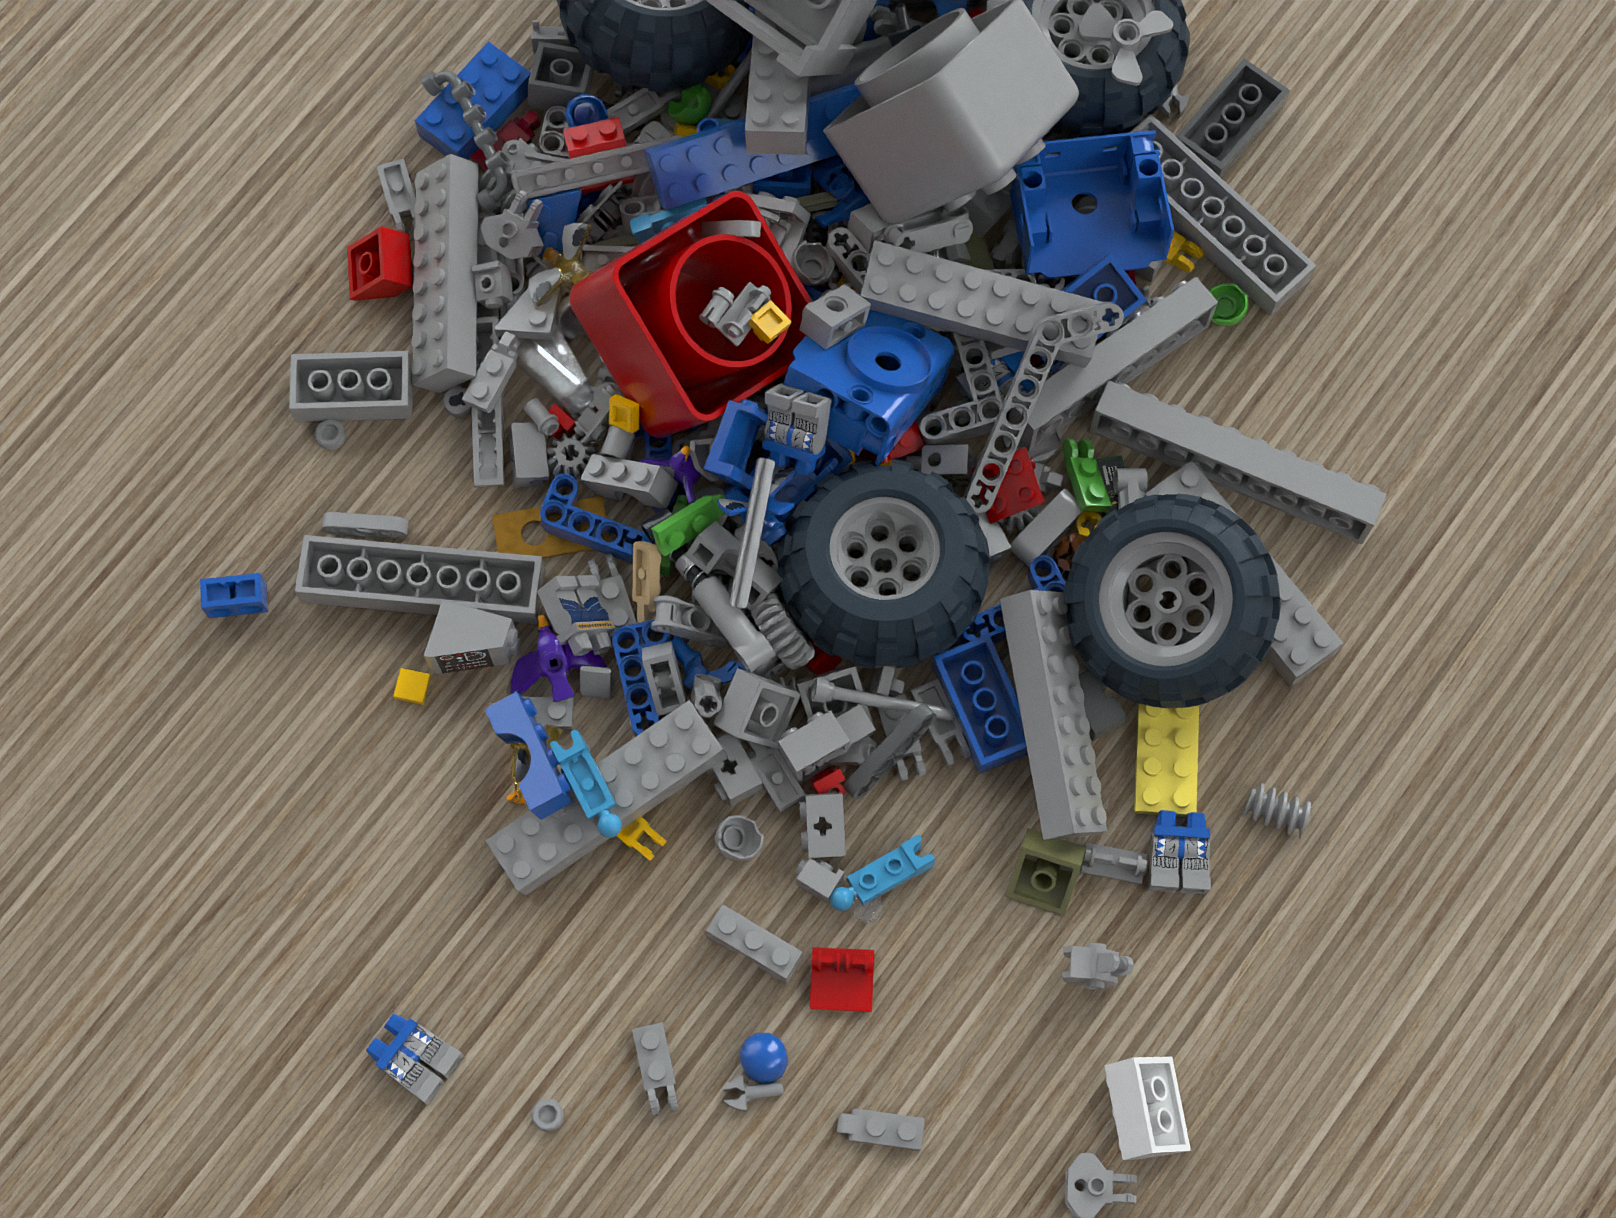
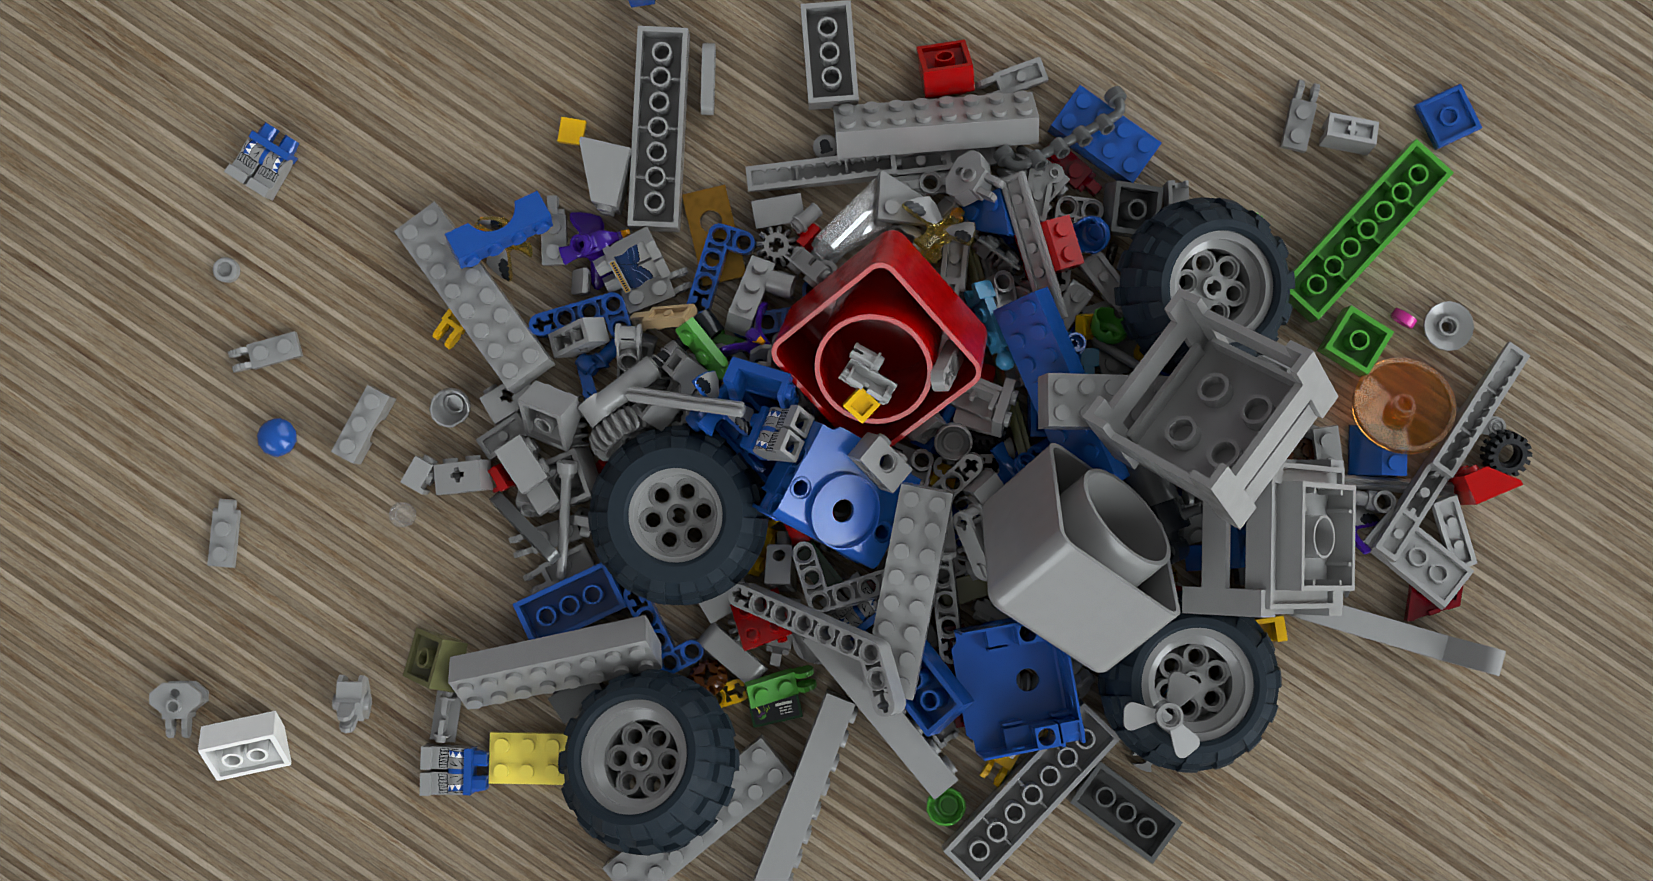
camera: 85 degrees right, 15 degrees up
(330, 434) = (790, 42): light grey tile -> none
(493, 374) = (841, 173): light grey hinge -> none
(499, 291) = (923, 166): light grey brick -> none
(588, 784) = (474, 279): dark azure plate -> none
(624, 413) = (800, 286): yellow tile -> none
(706, 694) = (562, 373): light grey piece -> none
(751, 1092) = (249, 427): light grey bar -> none
(842, 979) = (342, 496): red hinge -> none
(882, 875) = (424, 525): dark azure plate -> none
(1129, 484) = (769, 724): light grey piece -> none
(1278, 809) = (494, 851): light grey piece -> none

